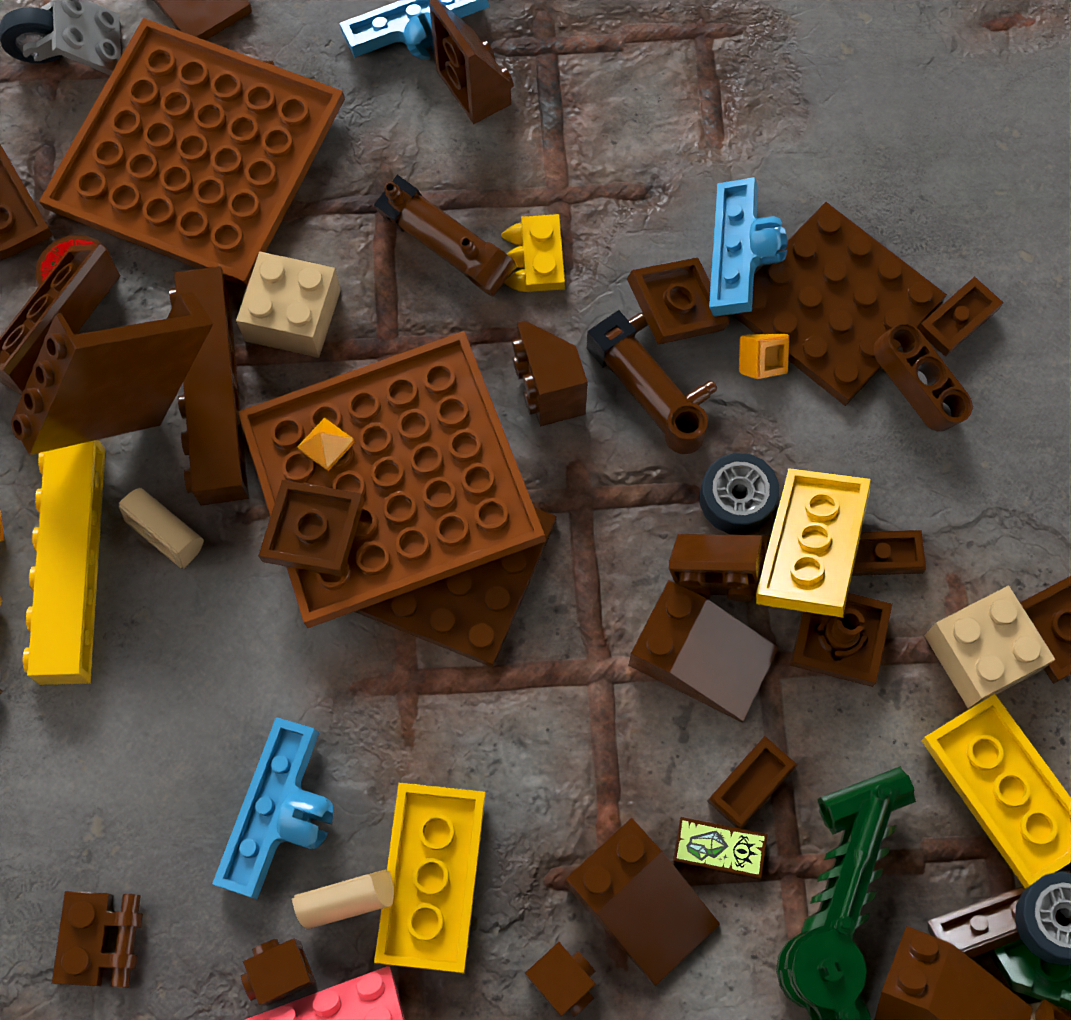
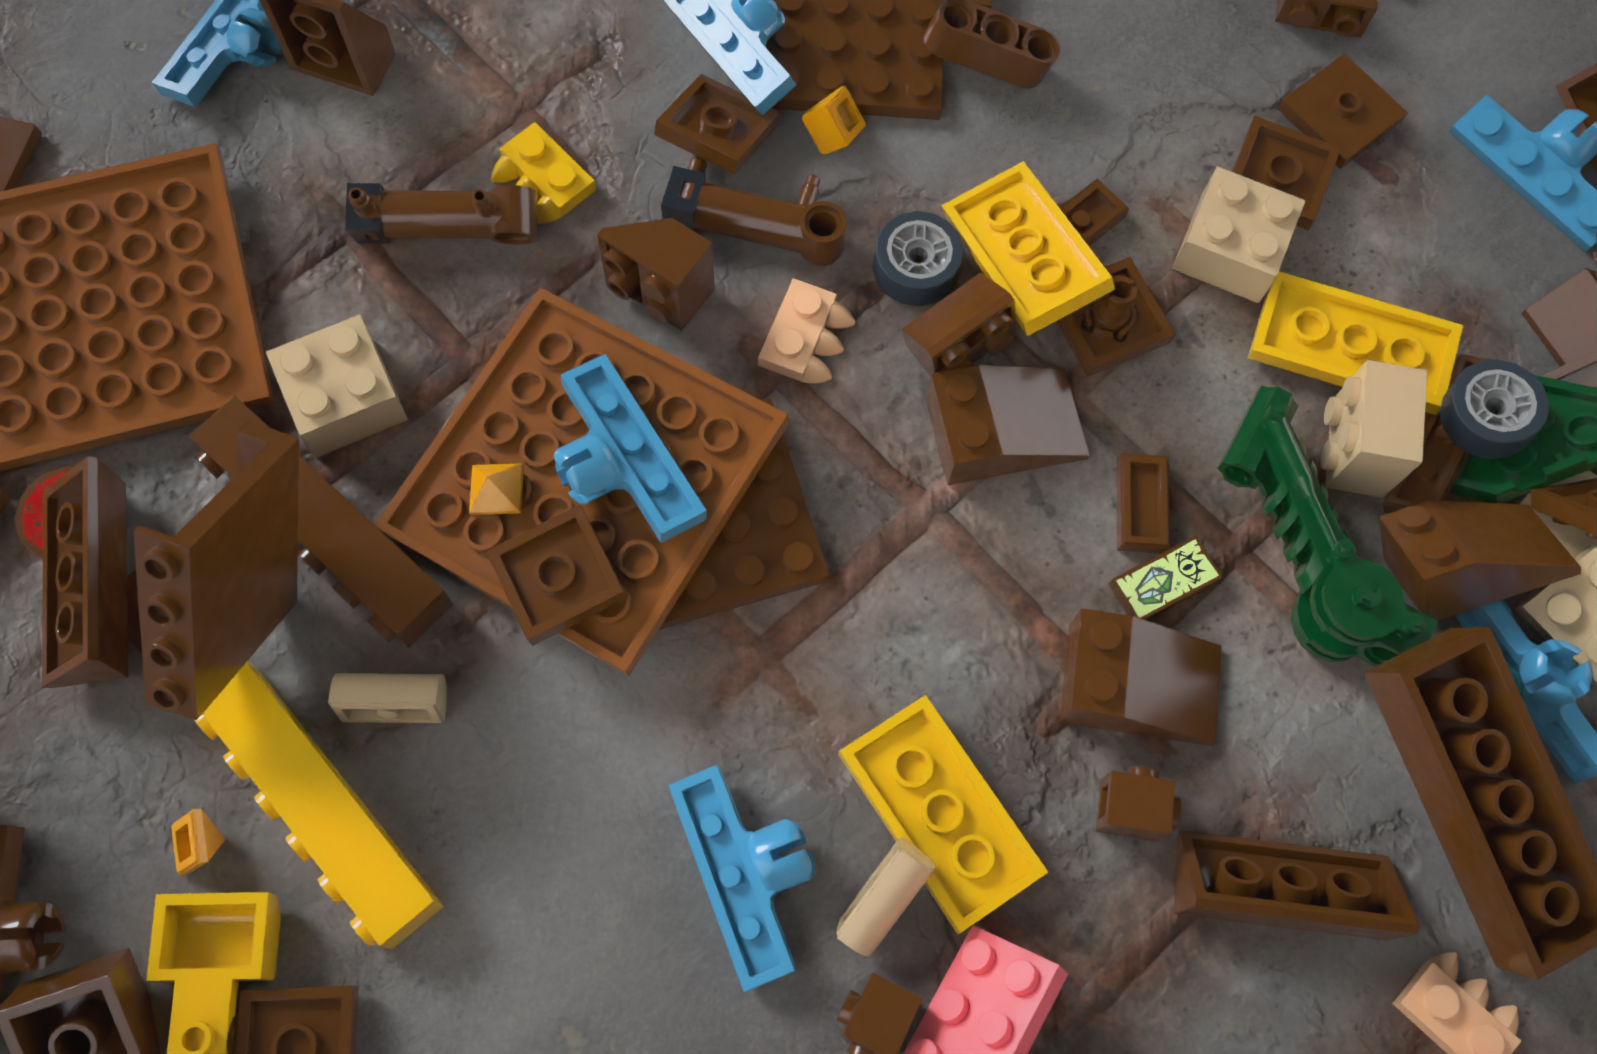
camera: 45 degrees left, 0 degrees up
(415, 480) = (623, 453): none -> dark azure plate
(617, 487) = (802, 333): none -> light nougat plate
(960, 862) = (1375, 429): none -> tan brick

